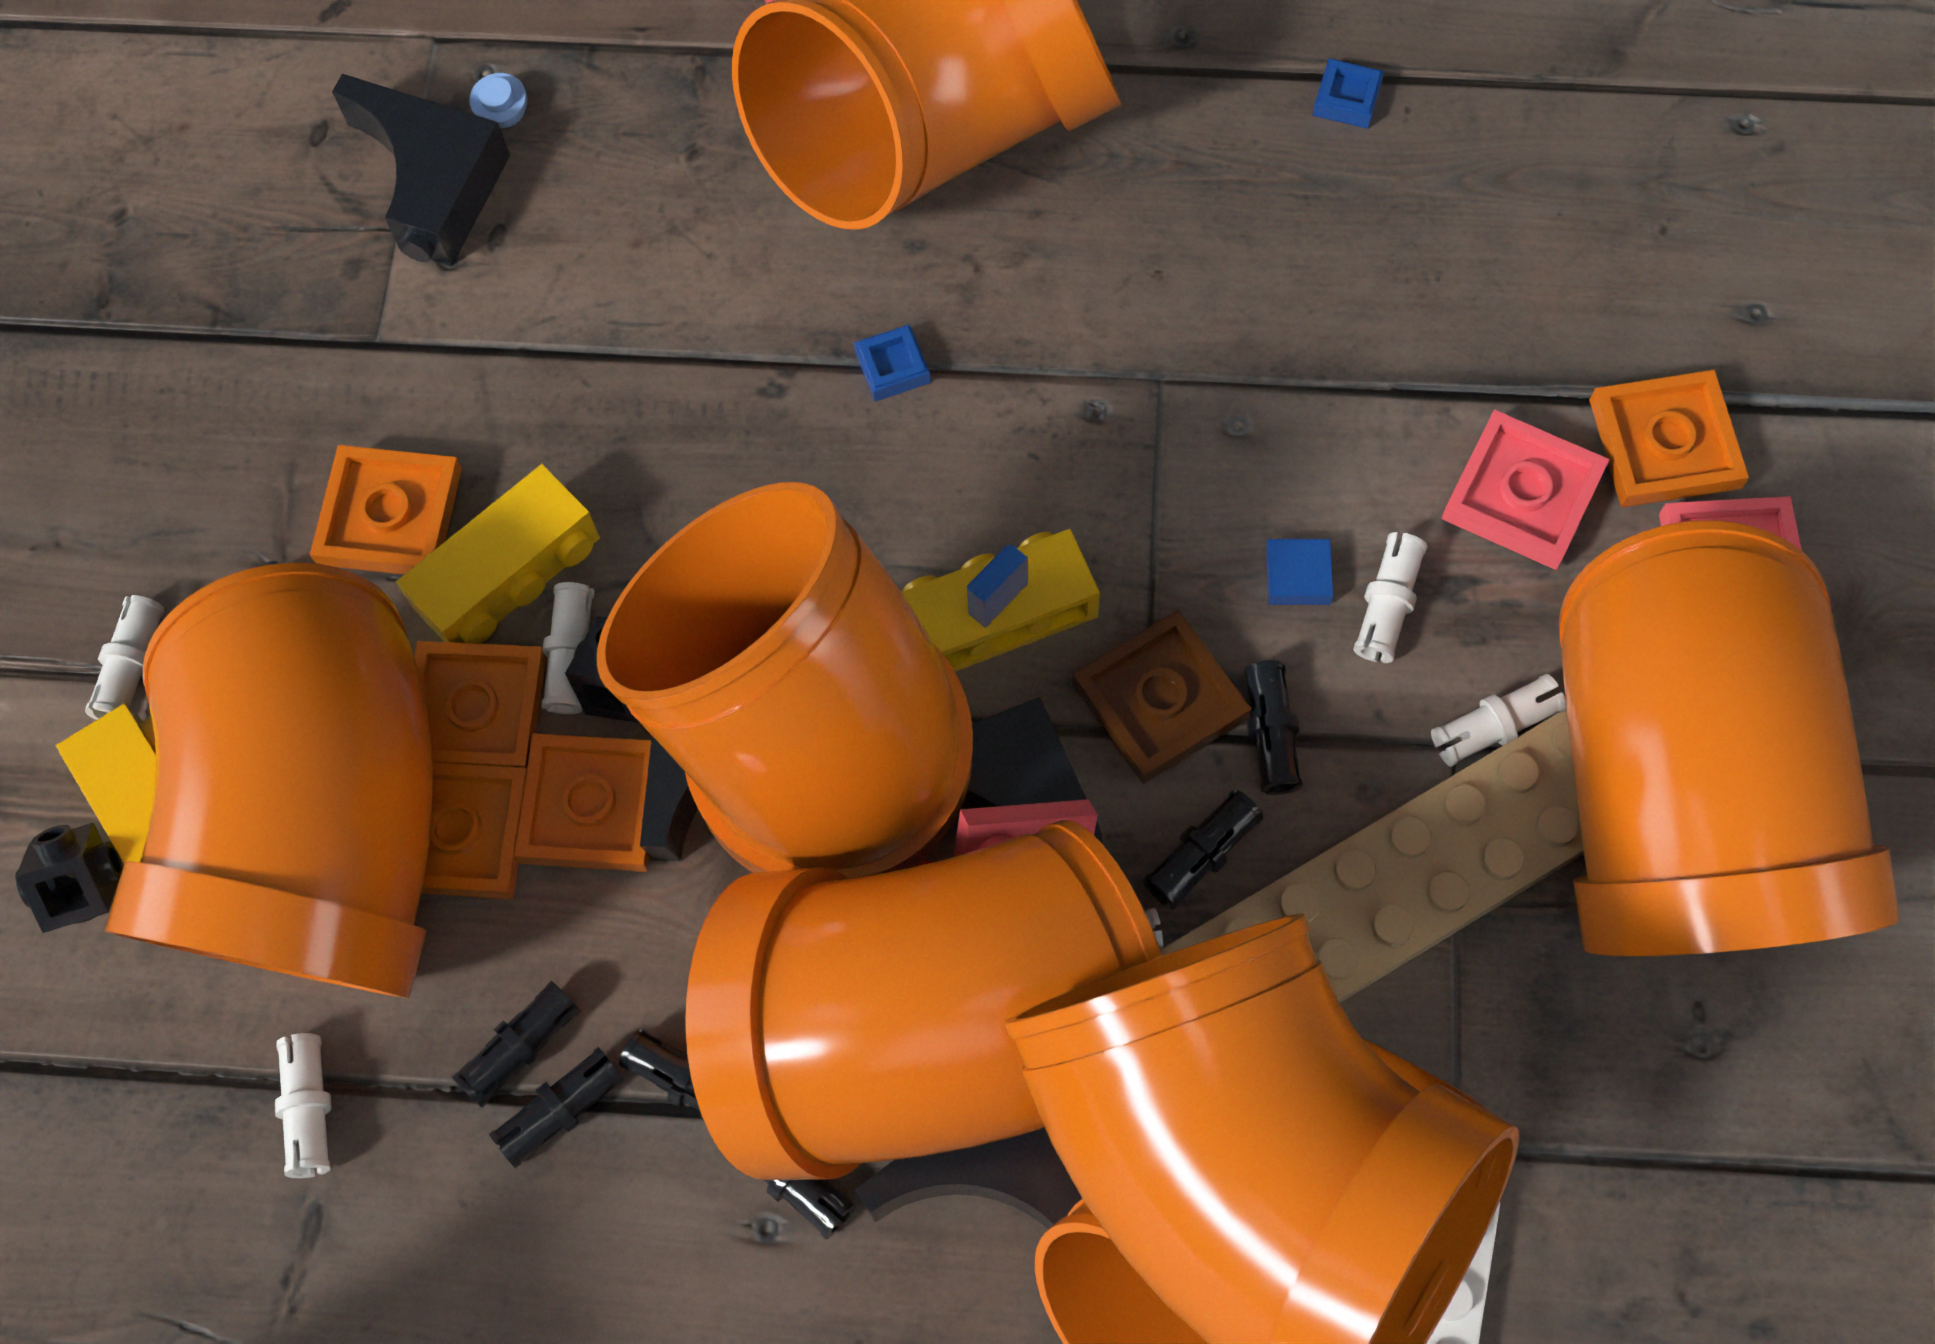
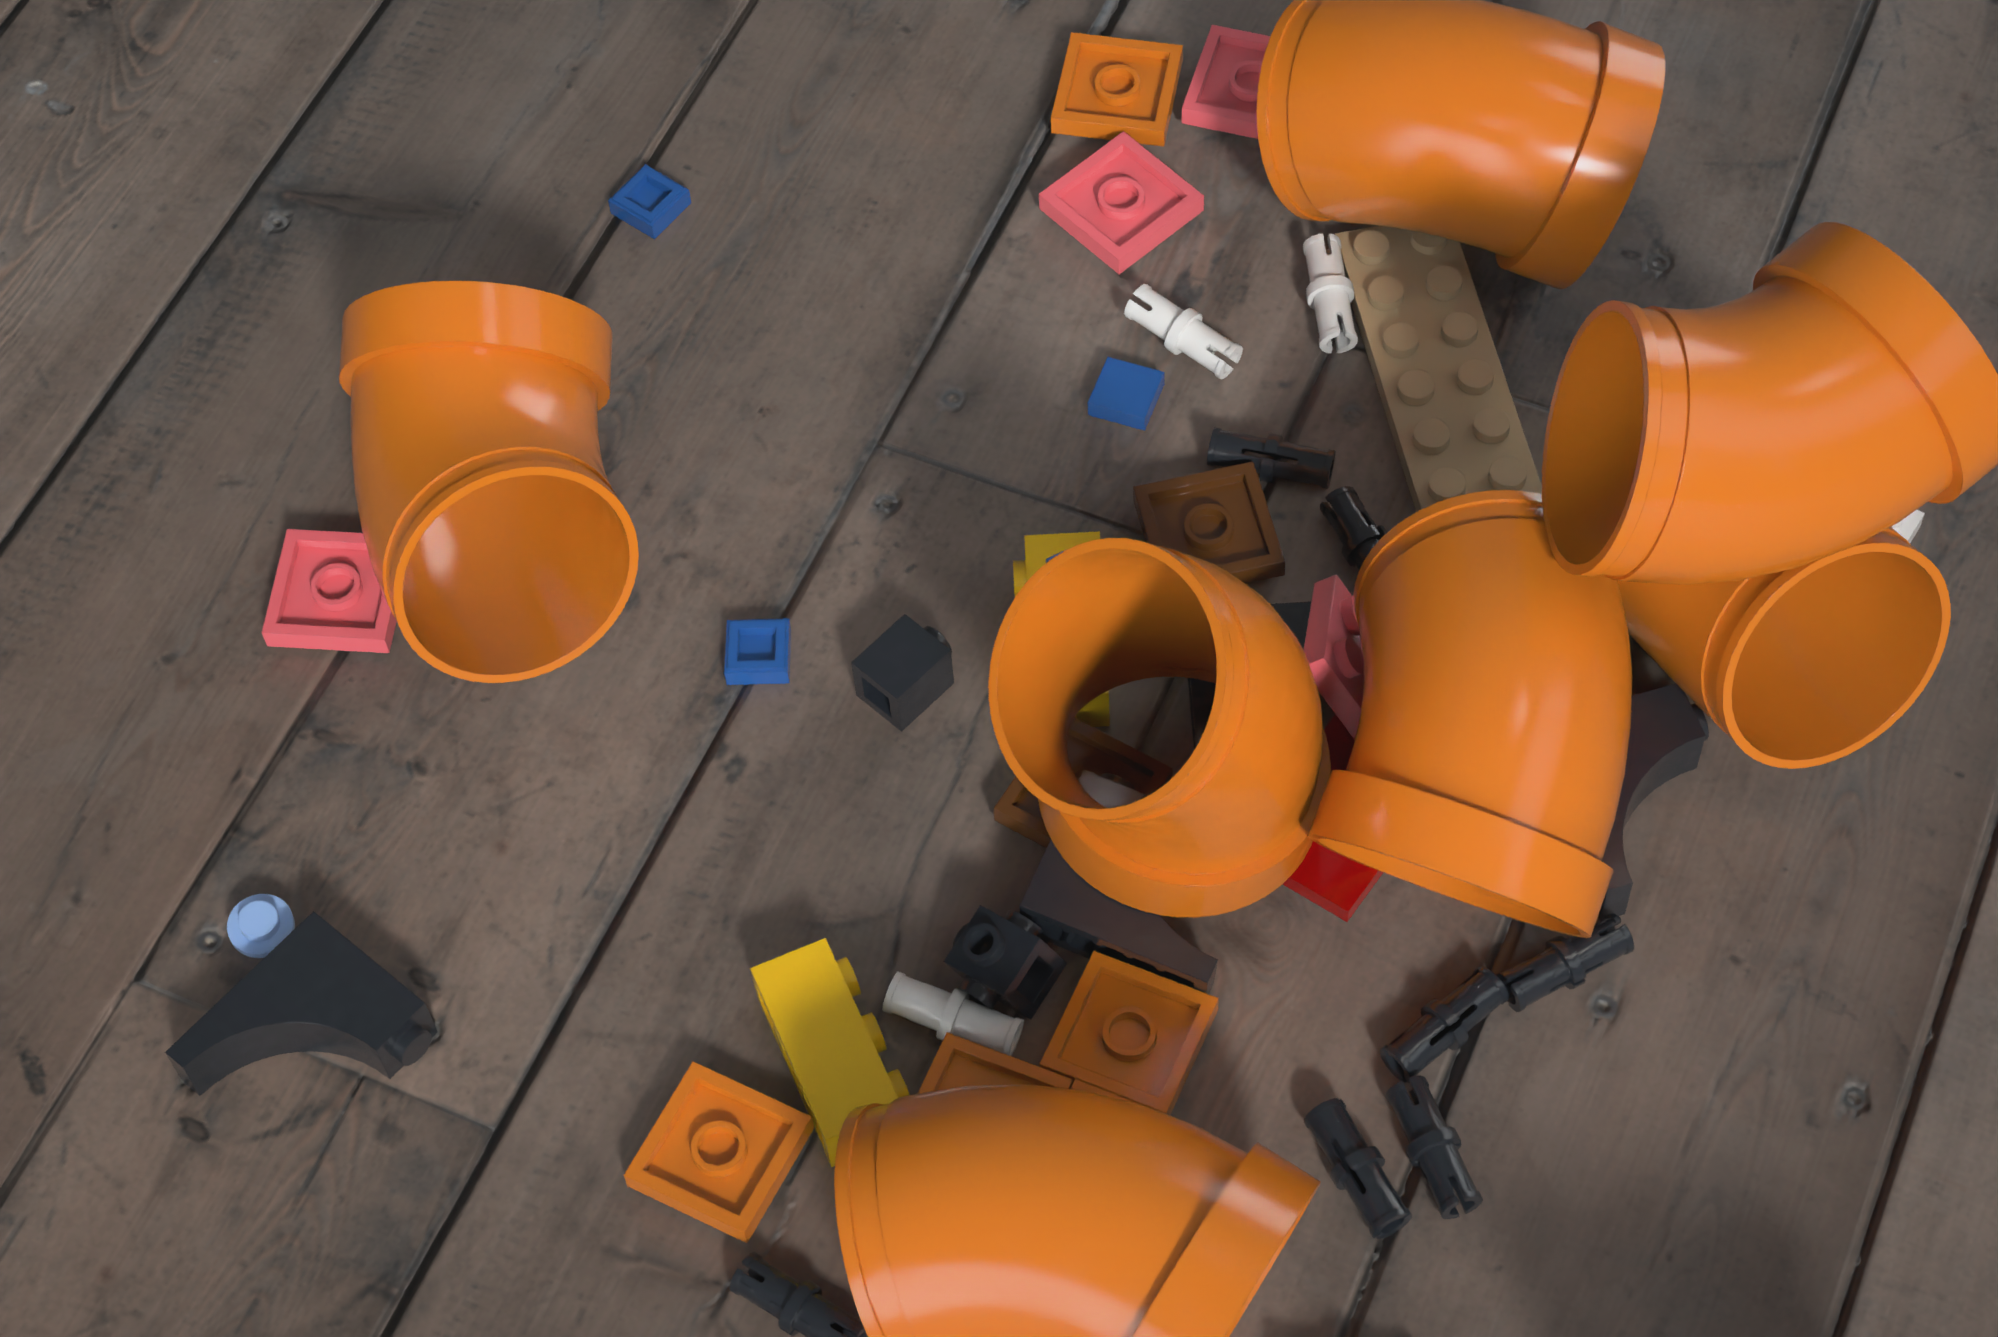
camera: 70 degrees left, 10 degrees down
(902, 484) = (904, 671): none -> black brick

